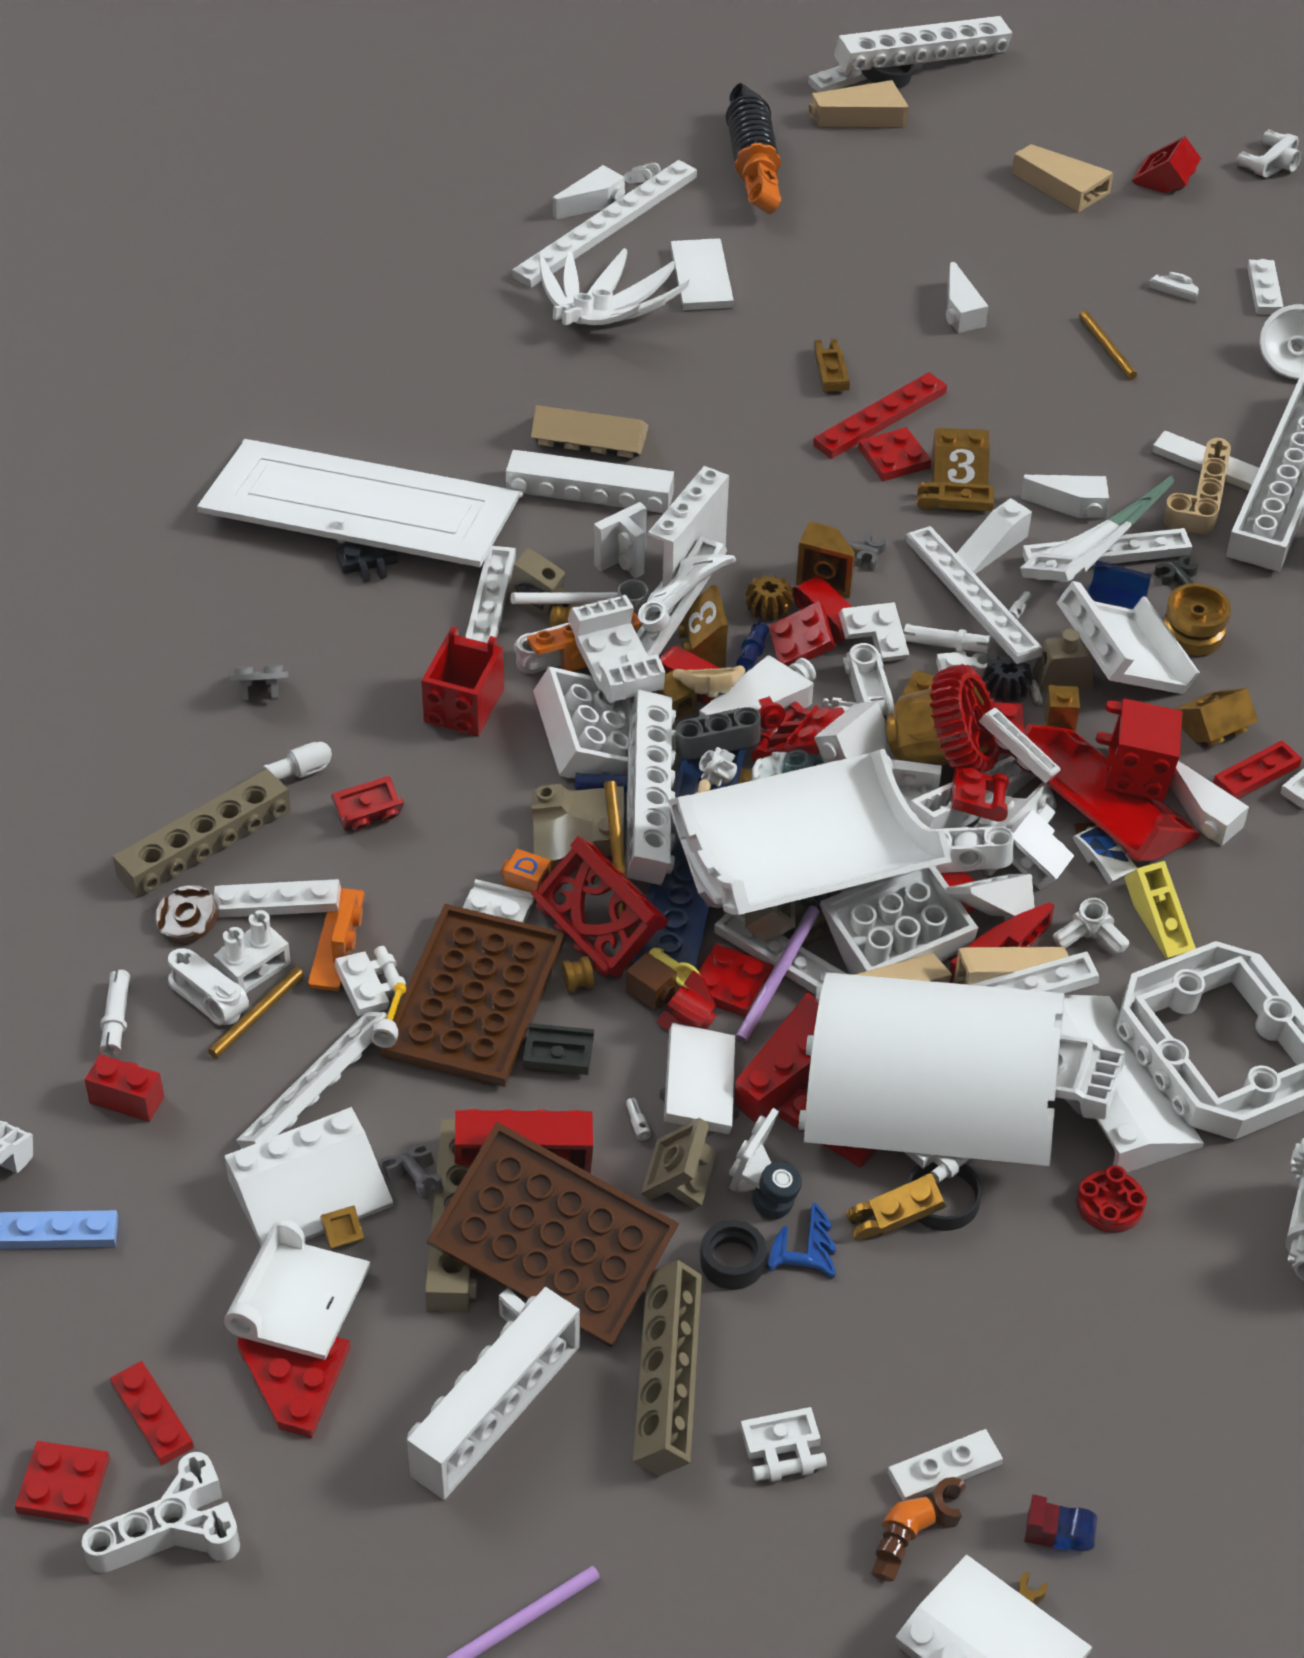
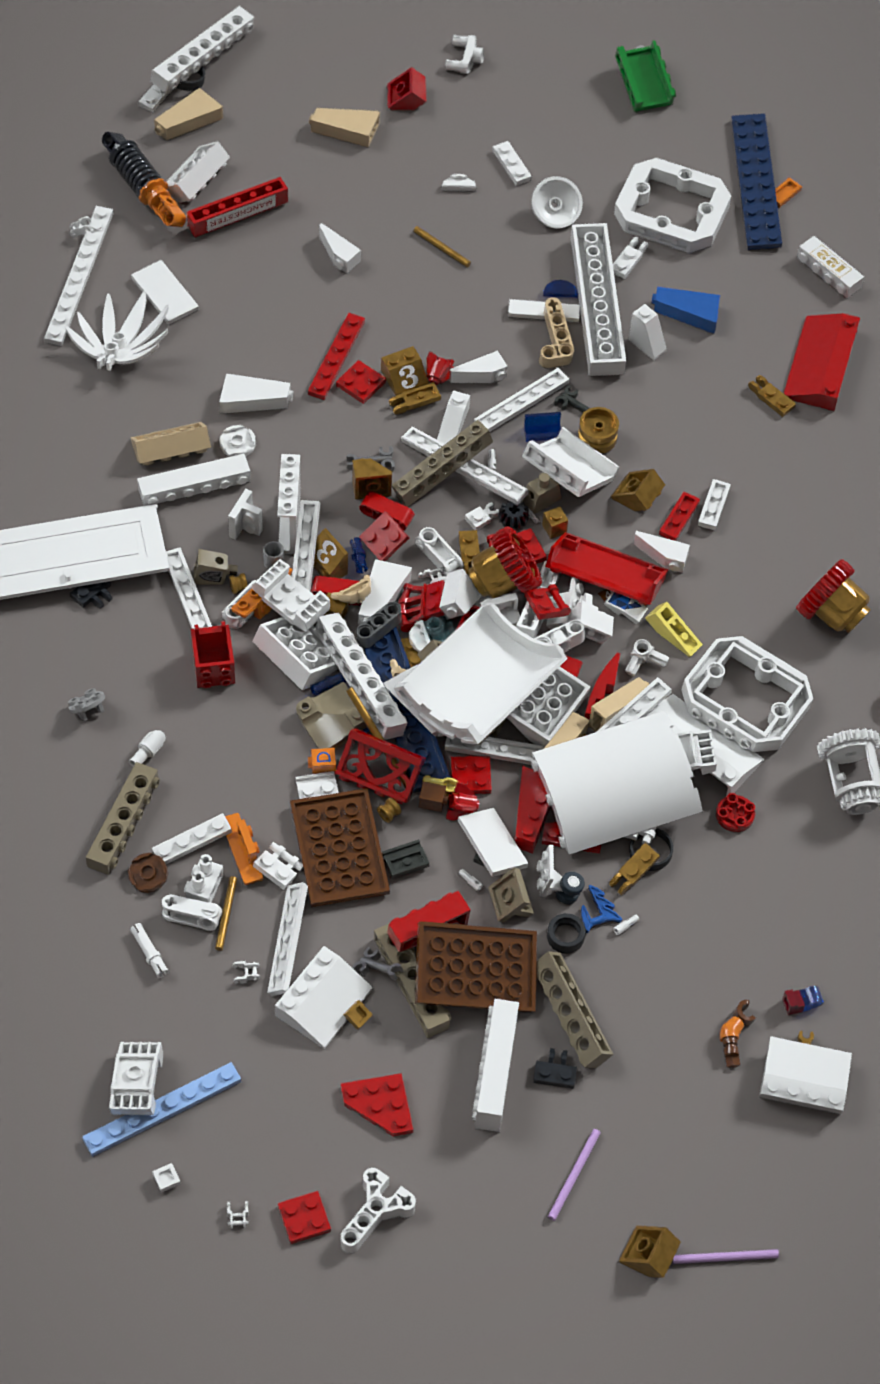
camera: 30 degrees left, 10 degrees up
(124, 1087) = (188, 991): red brick -> none
(151, 1413) = (324, 1160): red plate -> none
(221, 1108) = (242, 964): none -> white piece
(290, 1293) = (357, 1063): white door -> none
(367, 803) = (203, 756): red bracket -> none
(385, 1030) = (311, 893): white hinge -> none
(510, 1305) = (476, 1017): white tile -> none
(561, 597) = (234, 572): white bar -> none
(587, 1454) = (555, 1074): none -> black hinge
(589, 194) = (58, 256): white slope -> none
(683, 459) = (237, 441): none -> white tile
(690, 573) = (308, 527): white piece -> none
(718, 766) = (392, 647): white gear -> none
(736, 416) = (253, 394): none -> white slope
(769, 597) = (348, 517): pearl gold gear -> none
(771, 713) = (401, 598): red plate -> none
(777, 974) = (497, 767): lavender piece -> none
(783, 1434) = (645, 1017): white plate -> none
(804, 668) = (397, 558): white bush -> none
(830, 163) = (197, 171): none -> white slope
(831, 366) = (287, 332): pearl gold hinge -> none
(836, 1284) = (623, 926): none -> white pin
(856, 213) = (237, 207): none -> red brick
(881, 623) = (424, 509): white plate -> none
(942, 572) = (442, 463): none -> dark tan brick
(947, 638) = (466, 502): white pin -> none
(956, 1459) = (731, 995): white plate -> none
(997, 895) = (589, 659): white slope -> none
(1007, 471) = (438, 368): none -> red brick
(1011, 738) = (552, 561): white plate -> none
(1081, 552) = (512, 412): white plate -> none
(1142, 748) = (616, 532): red container -> none
(1247, 443) = (560, 288): none -> clear blue tile

